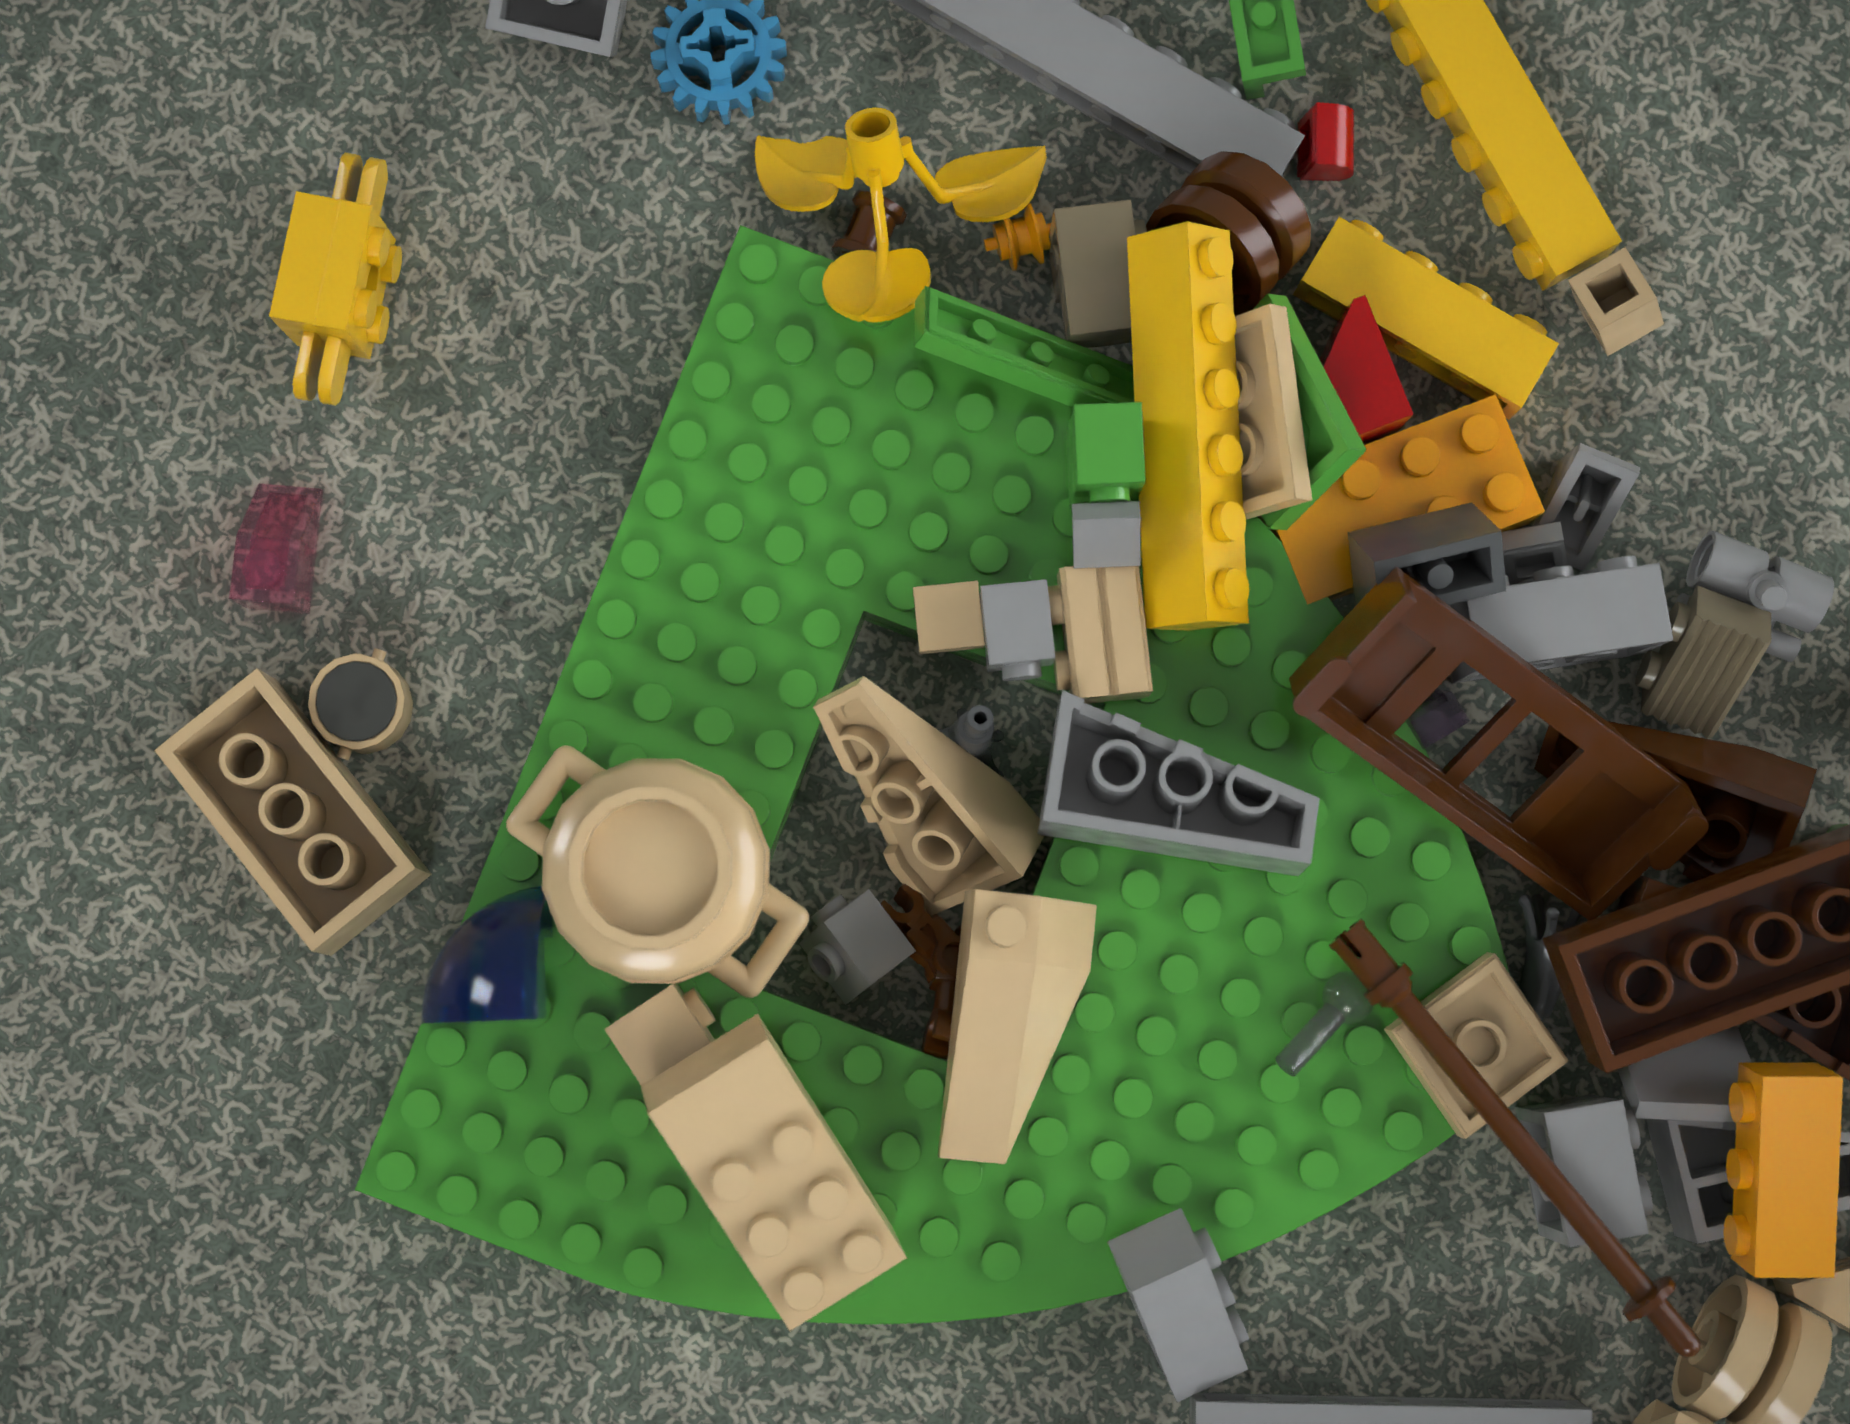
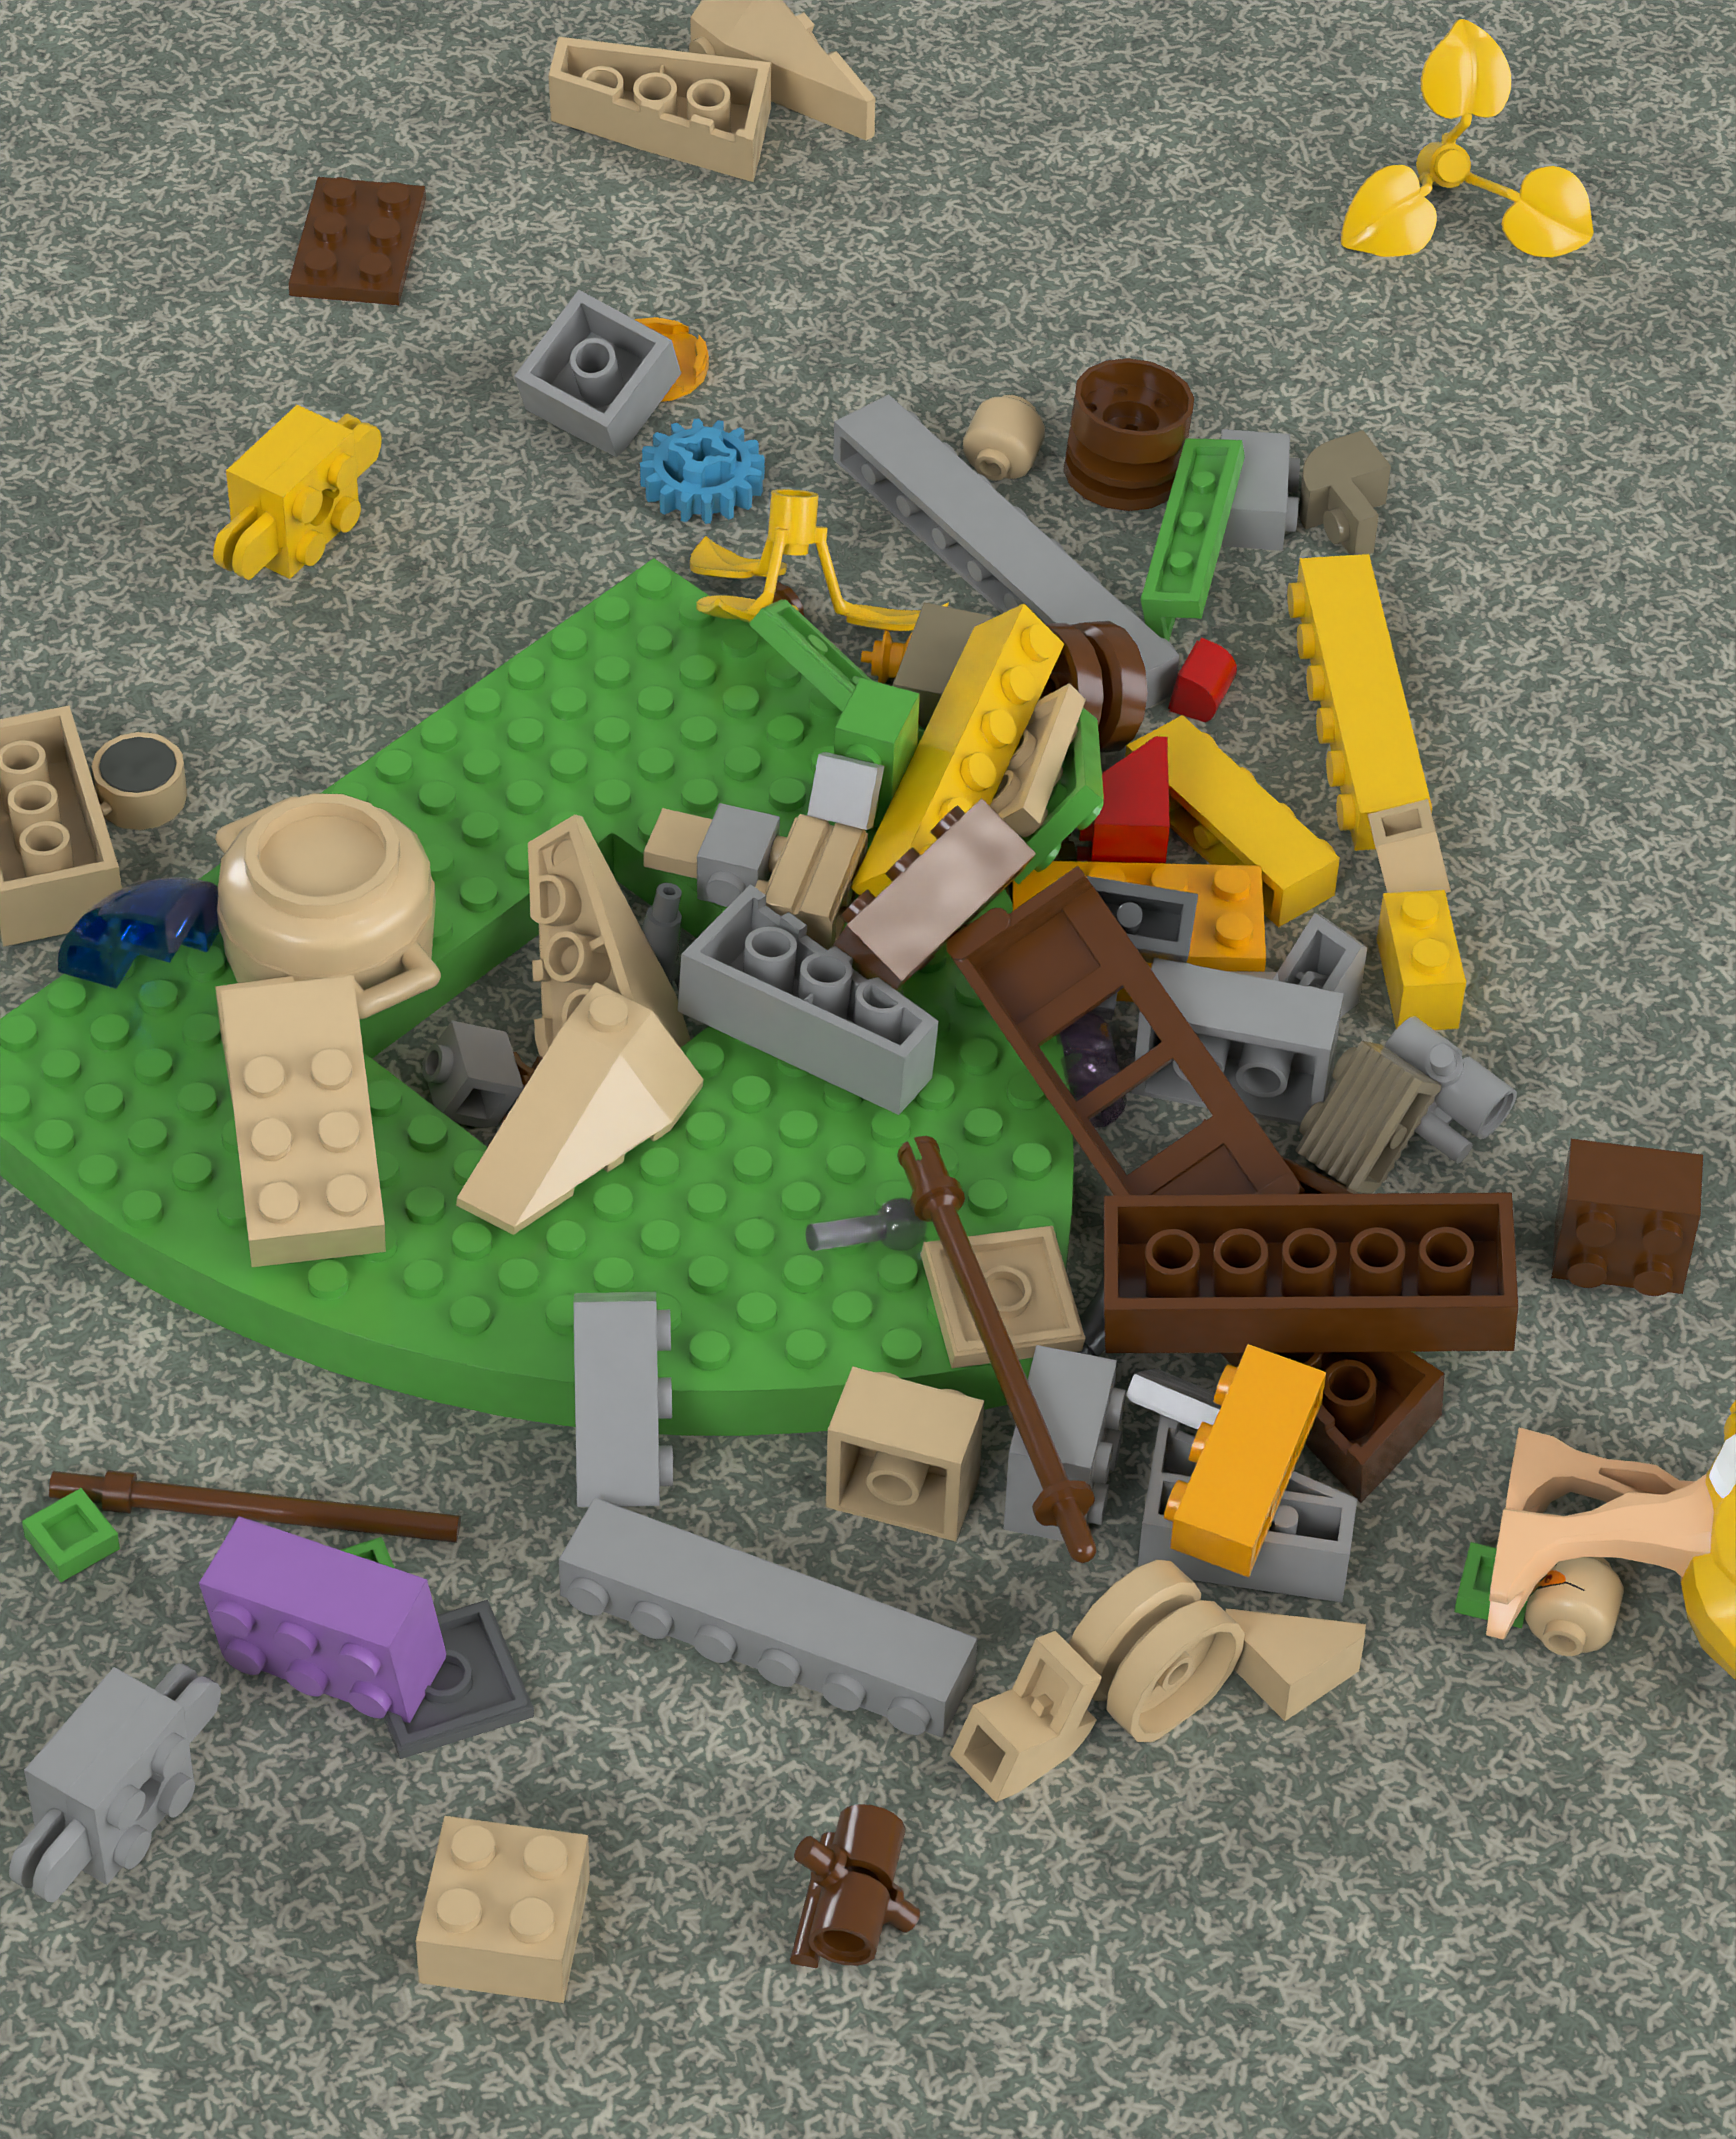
camera: 25 degrees right, 35 degrees down
(277, 549) = (128, 666): clear pink slope -> none
(1259, 667) = (932, 894): none -> wedge
(1450, 1236) = (904, 1453): none -> tan brick
(1672, 429) = (1421, 958): none -> yellow brick

